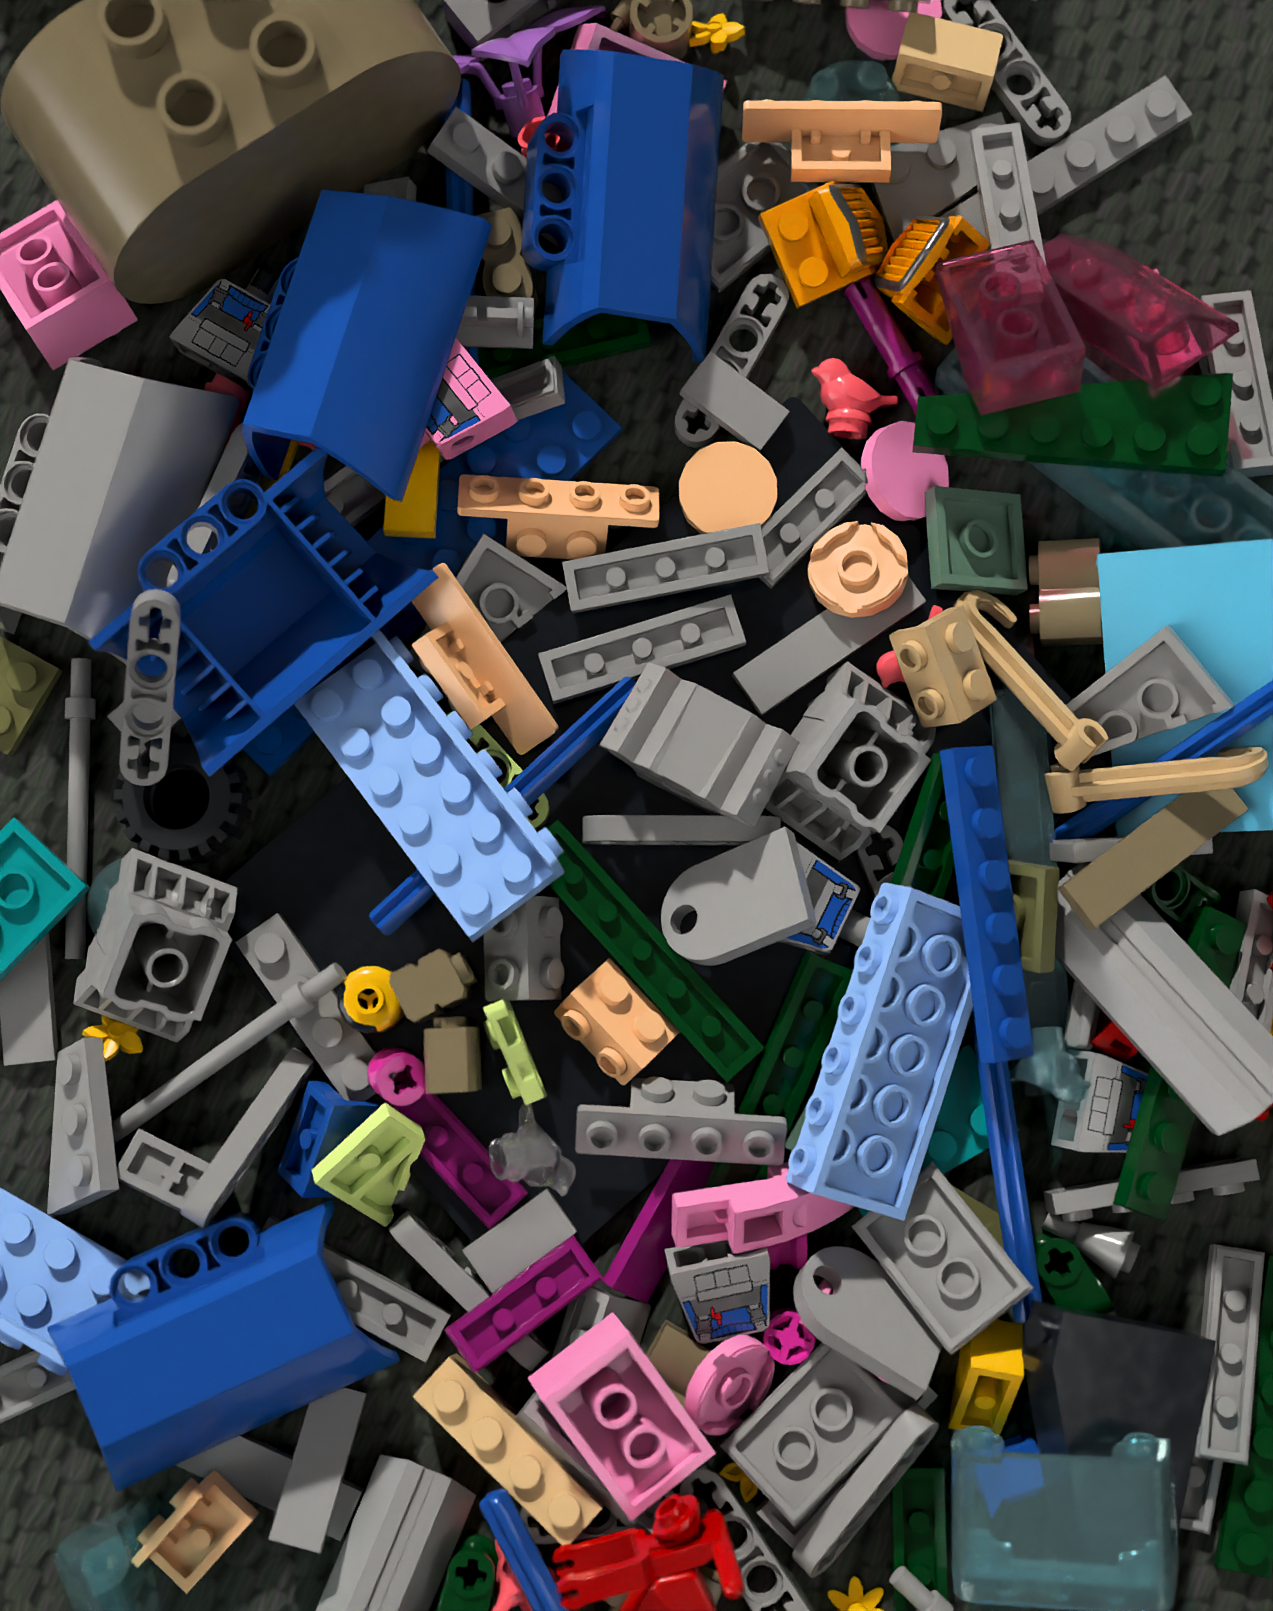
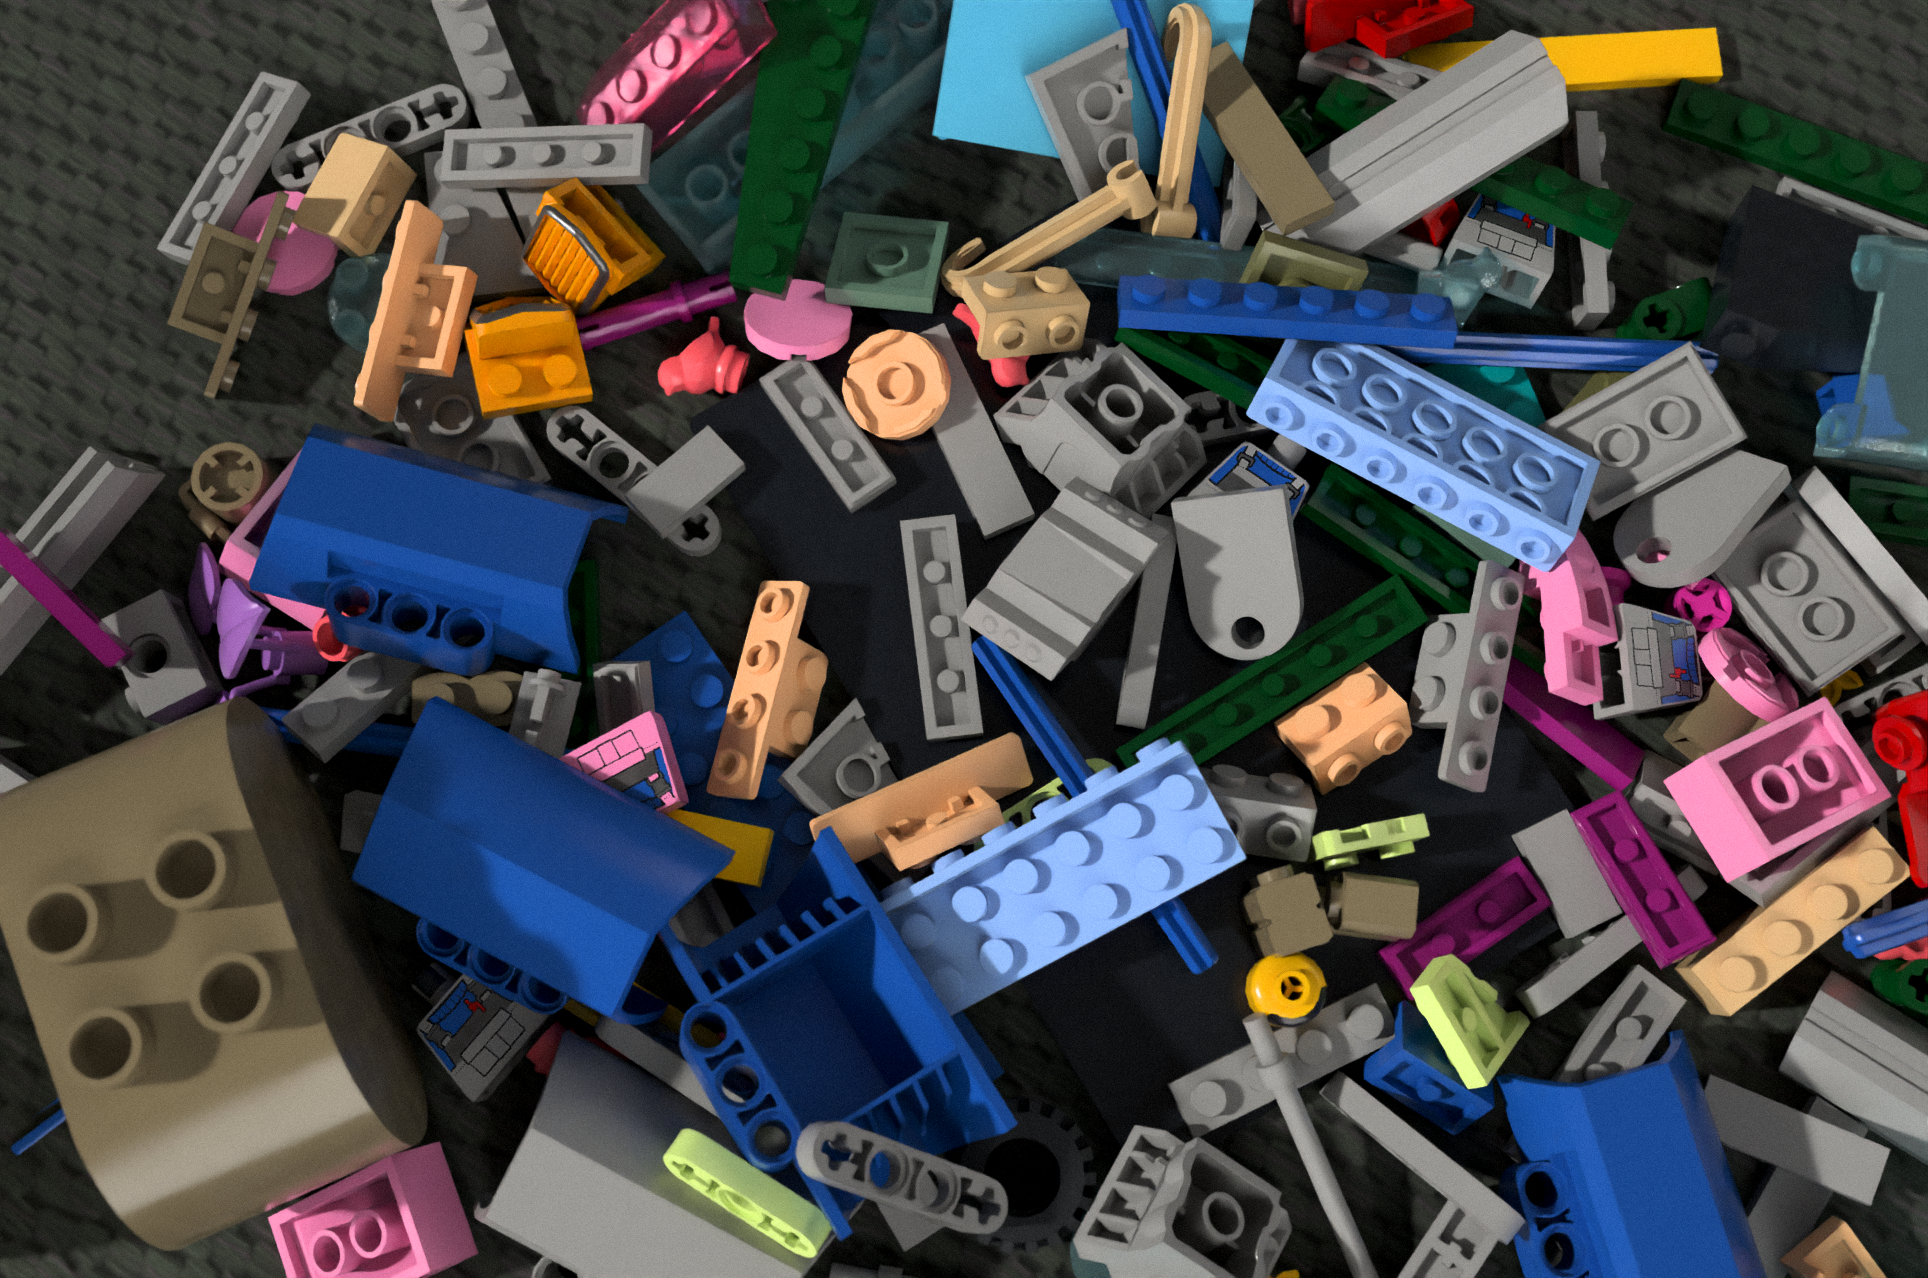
camera: 80 degrees left, 5 degrees down
(120, 563) = (747, 1192): none -> yellowish green beam
(387, 1069) = (1361, 974): dark pink wheel -> none
(531, 1156) = (1479, 844): clear animal -> none
(666, 568) = (858, 584): light grey plate -> none
(717, 32) = (262, 428): yellow plant -> none
(727, 487) = (781, 507): light nougat tile -> none
(988, 1377) = (1769, 413): yellow slope -> none
(1010, 327) = (678, 165): clear pink slope -> none
(1067, 593) = (959, 181): dark tan brick -> none
(1104, 1245) = (1640, 275): light grey cone -> none
(1231, 1320) = (1730, 170): light grey tile -> none

